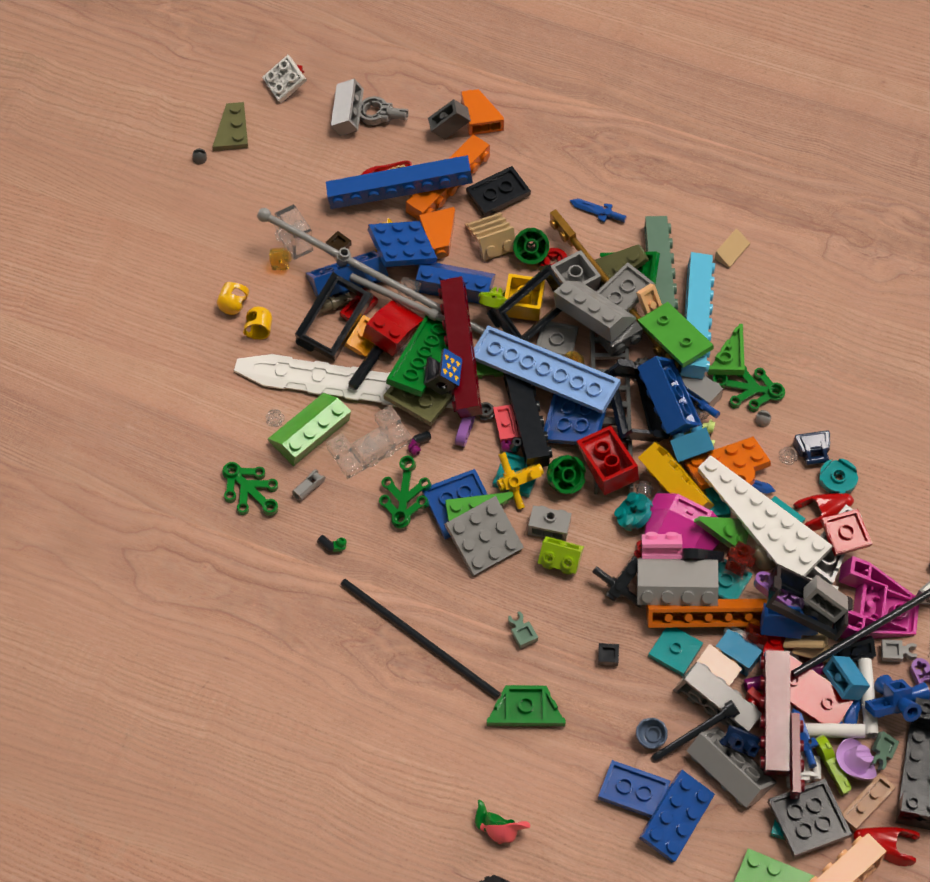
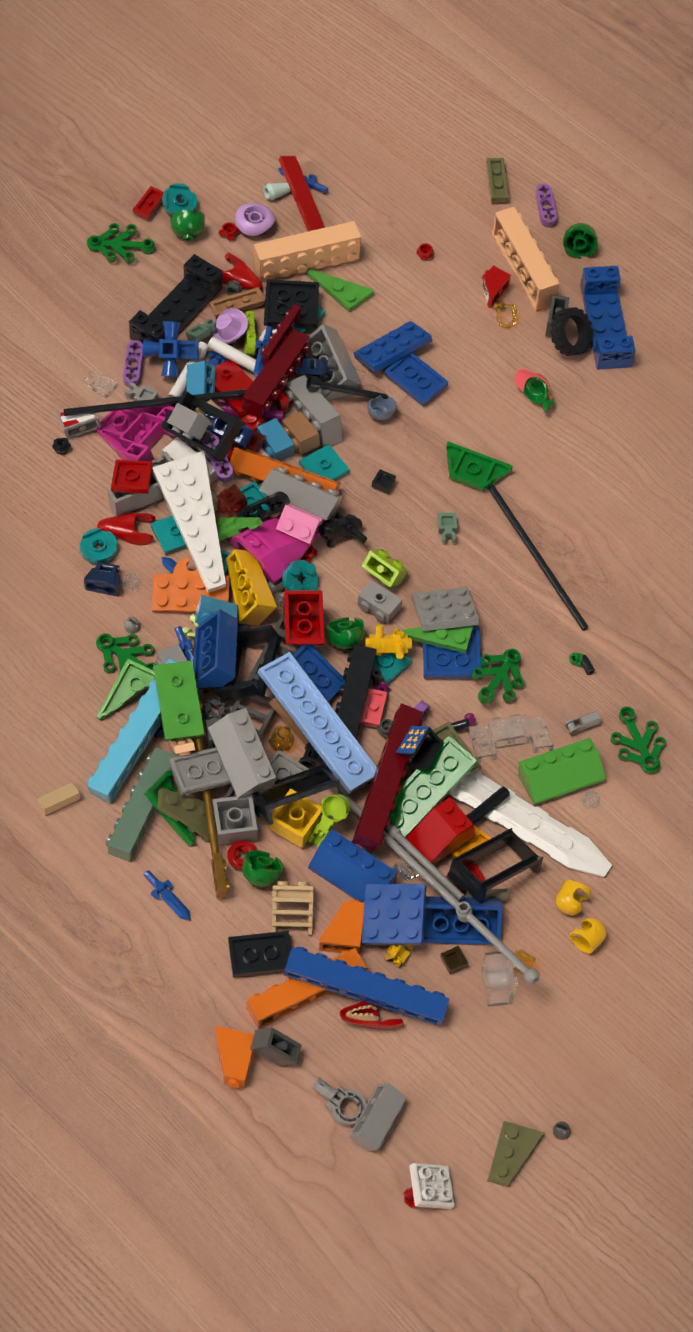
camera: 160 degrees left, 0 degrees up
(882, 820) = (233, 287): none -> dark grey plate

